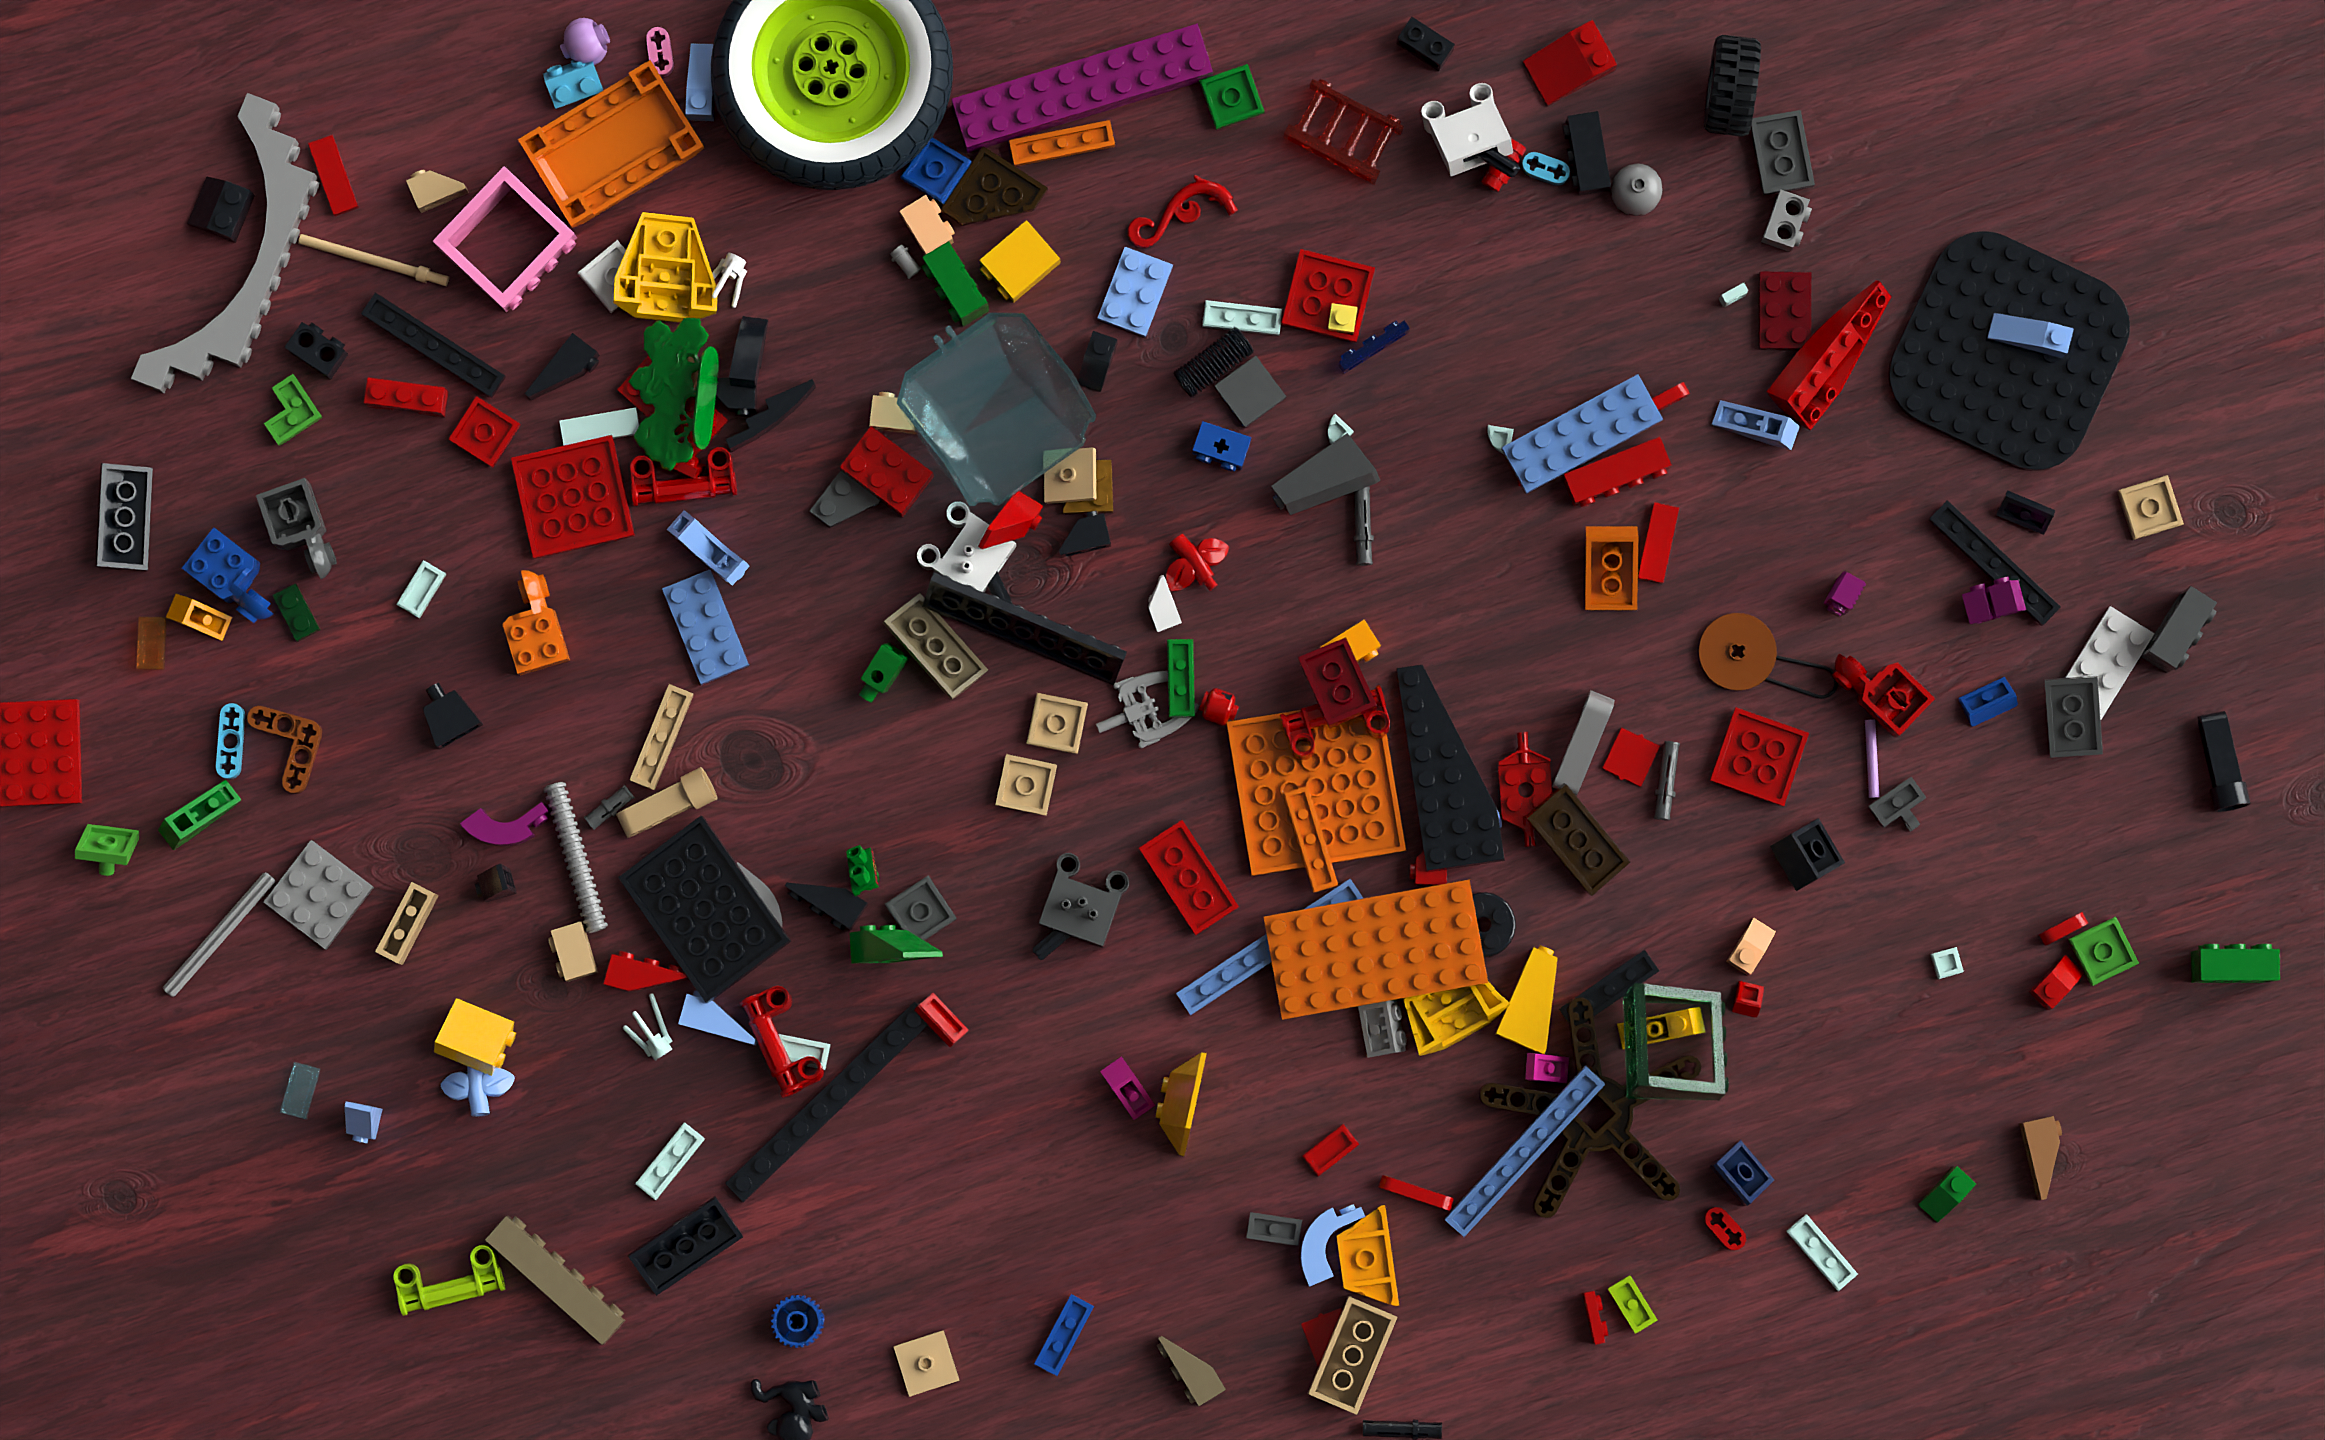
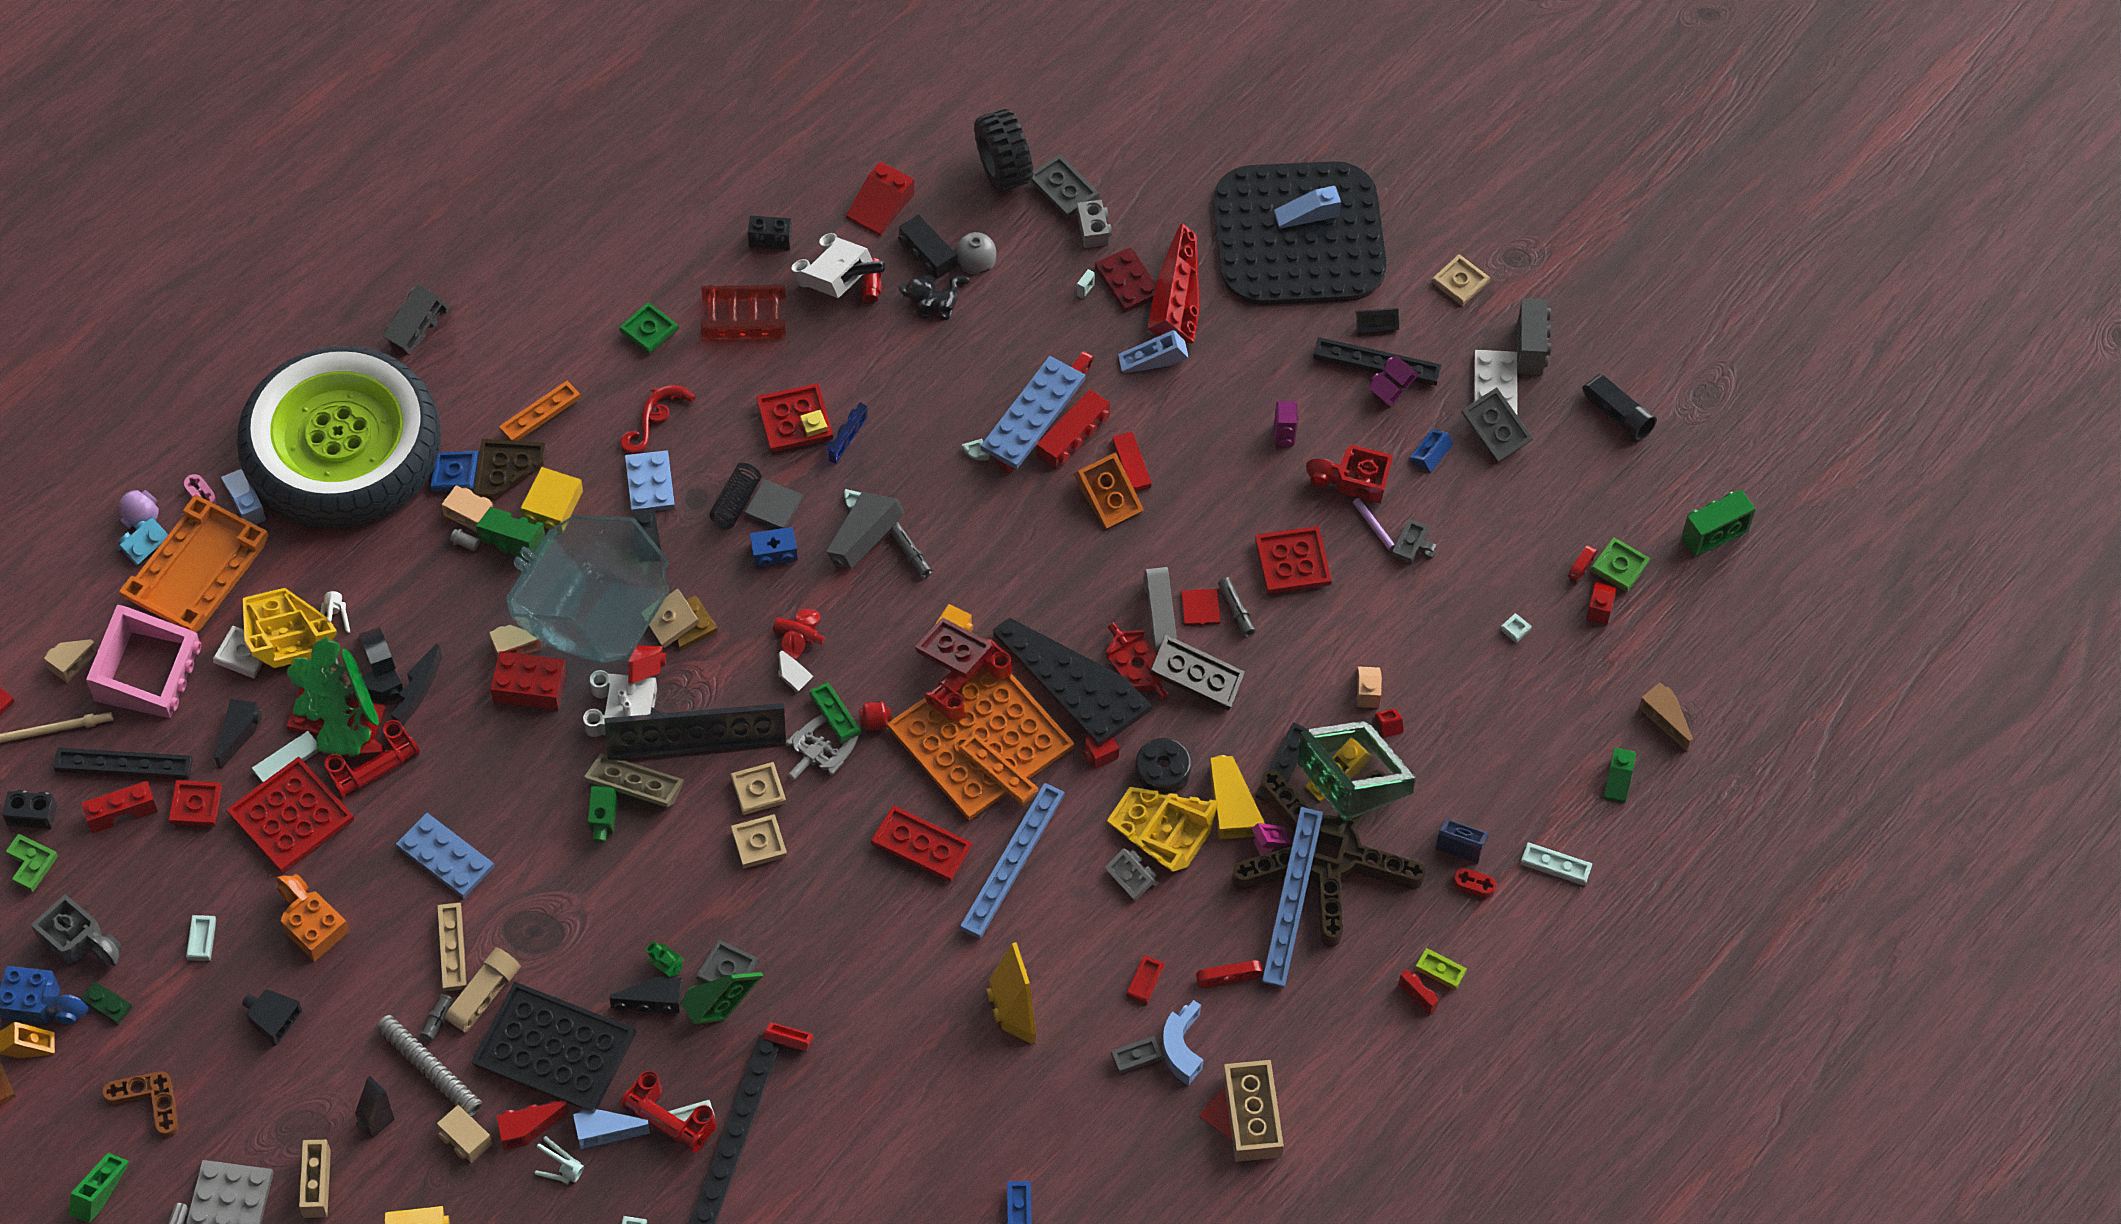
camera: 30 degrees left, 25 degrees down
(238, 722) = (105, 1127): medium azure beam -> none
(505, 834) = (351, 1079): magenta arch -> none
(708, 548) = (417, 798): light blue arch -> none
(843, 500) = (505, 719): dark grey wing -> none
(1077, 909) = (849, 904): dark grey piece -> none
(1082, 88) = (534, 370): magenta brick -> none
(1087, 535) = (708, 652): black slope -> none
(1127, 1088) = (962, 1011): dark pink slope -> none
(1198, 1375) = (1135, 1188): dark tan slope -> none
(1244, 317) = (724, 466): light aqua tile -> none
(1368, 1258) = (1221, 1038): light orange wing -> none
(1375, 949) = (1093, 817): orange plate -> none
(1402, 1429) = (1324, 1148): black pin -> none
(1543, 174) = (902, 270): medium azure beam -> none
(1551, 208) = (923, 290): none -> black animal
(1731, 671) = (1241, 515): dark orange piece -> none
(1801, 690) = (1280, 508): black piece -> none
(1807, 854) = (1368, 605): black slope -> none

